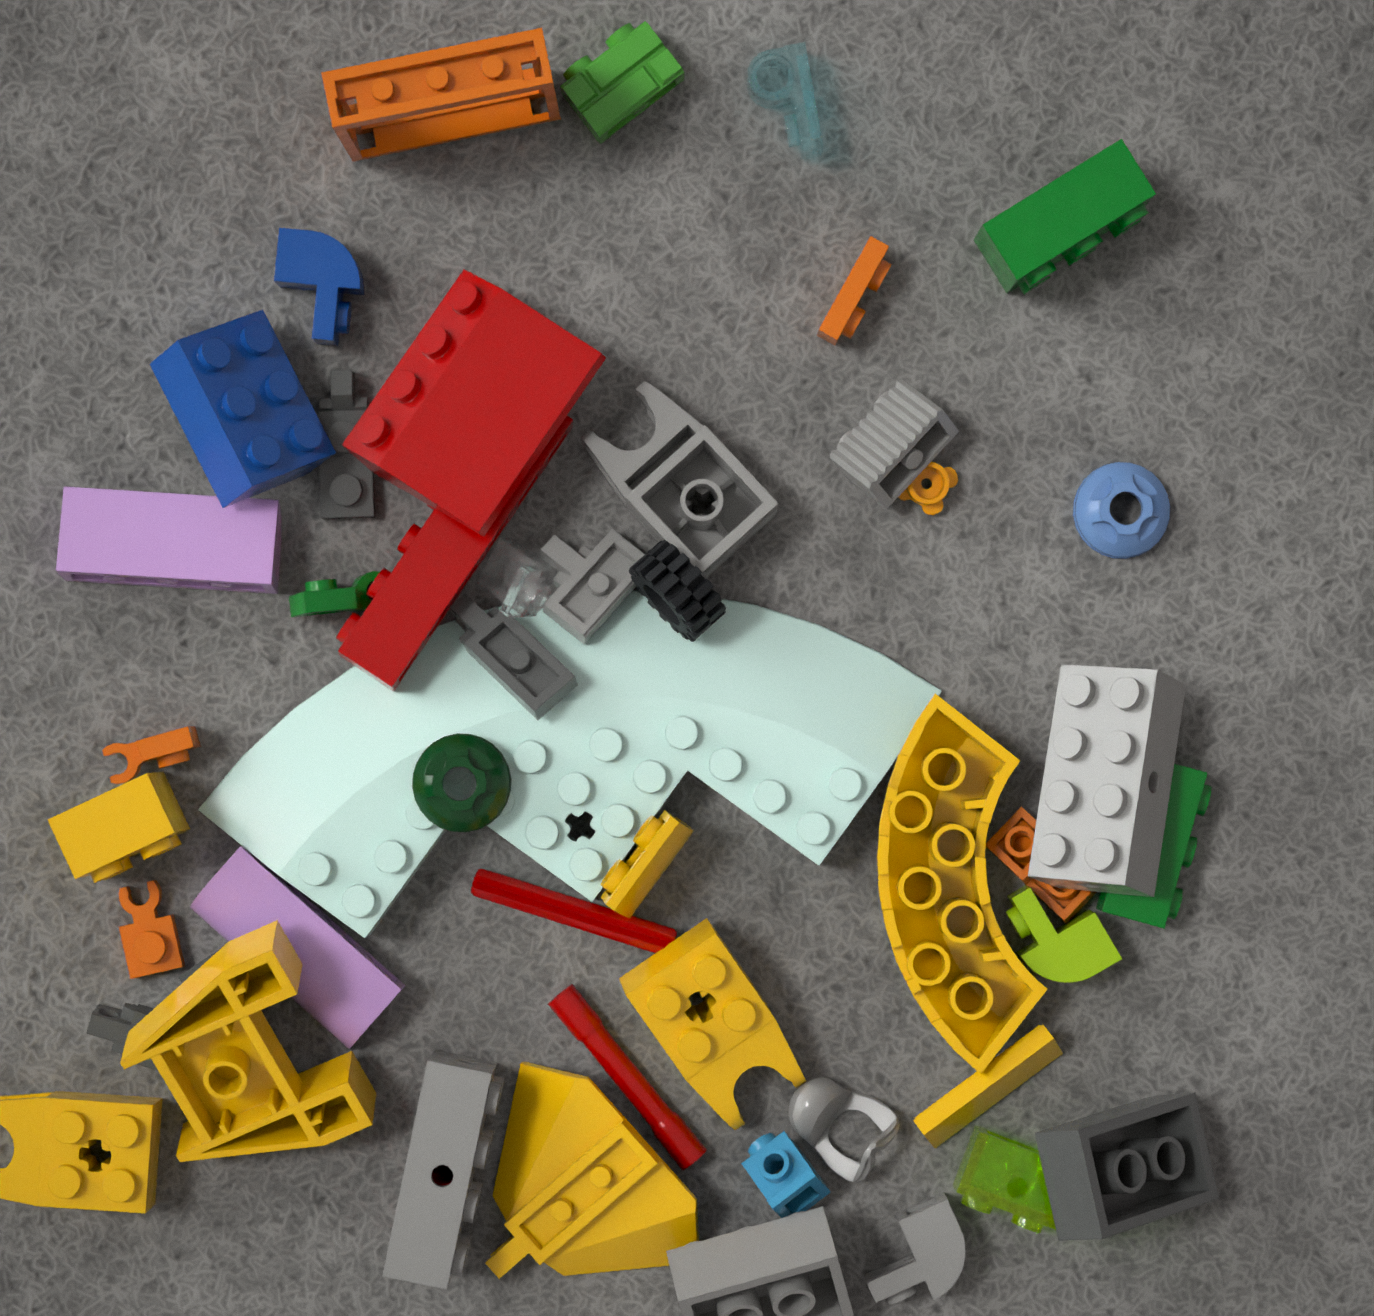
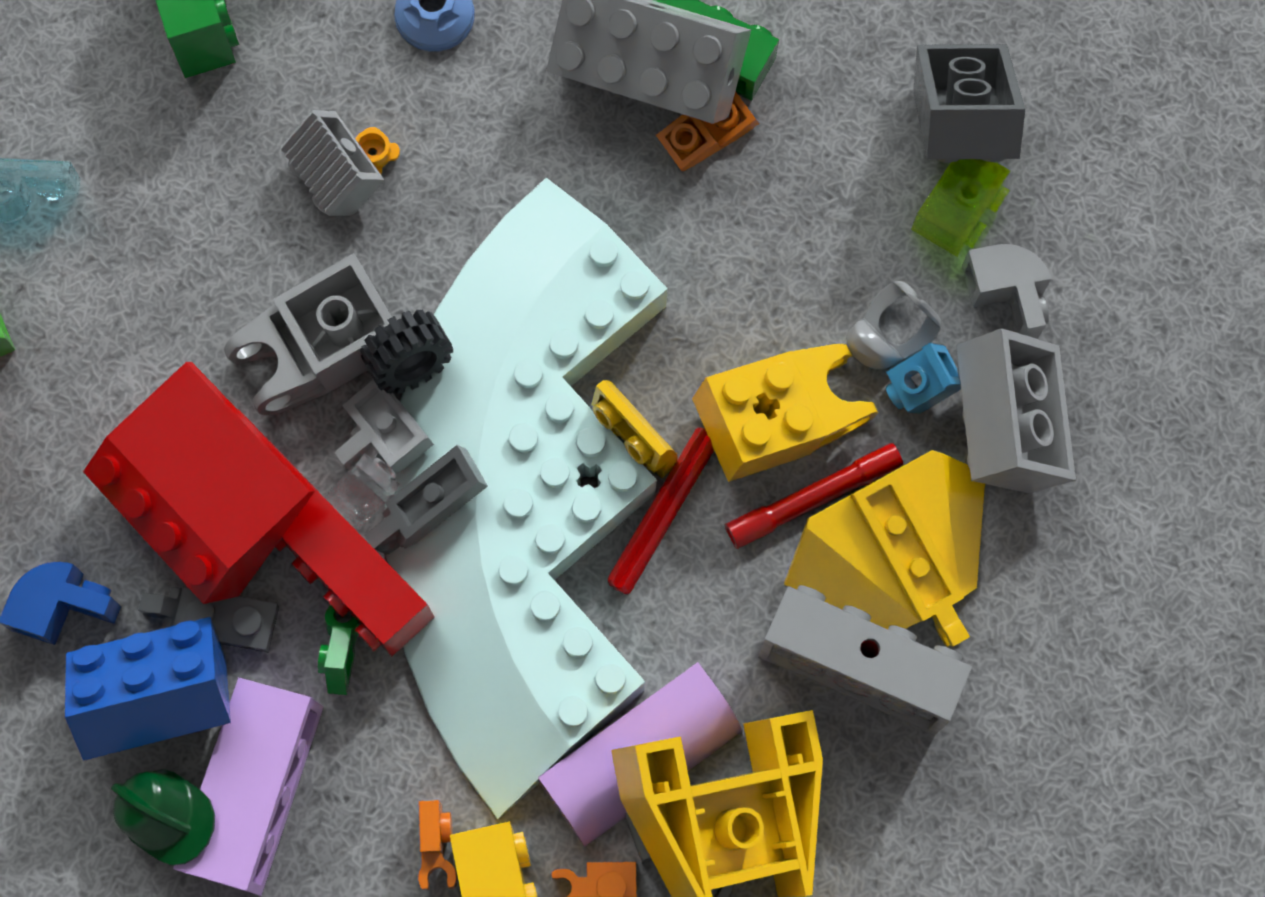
camera: 80 degrees left, 15 degrees down
(118, 462) = (164, 815): none -> dark green piece
(491, 777) = (531, 586): dark green piece -> none
(867, 273) = (187, 159): orange plate -> none
(938, 888) = (703, 200): yellow brick -> none
(986, 1089) = (880, 205): yellow tile -> none
(1064, 953) = (779, 130): lime brick -> none

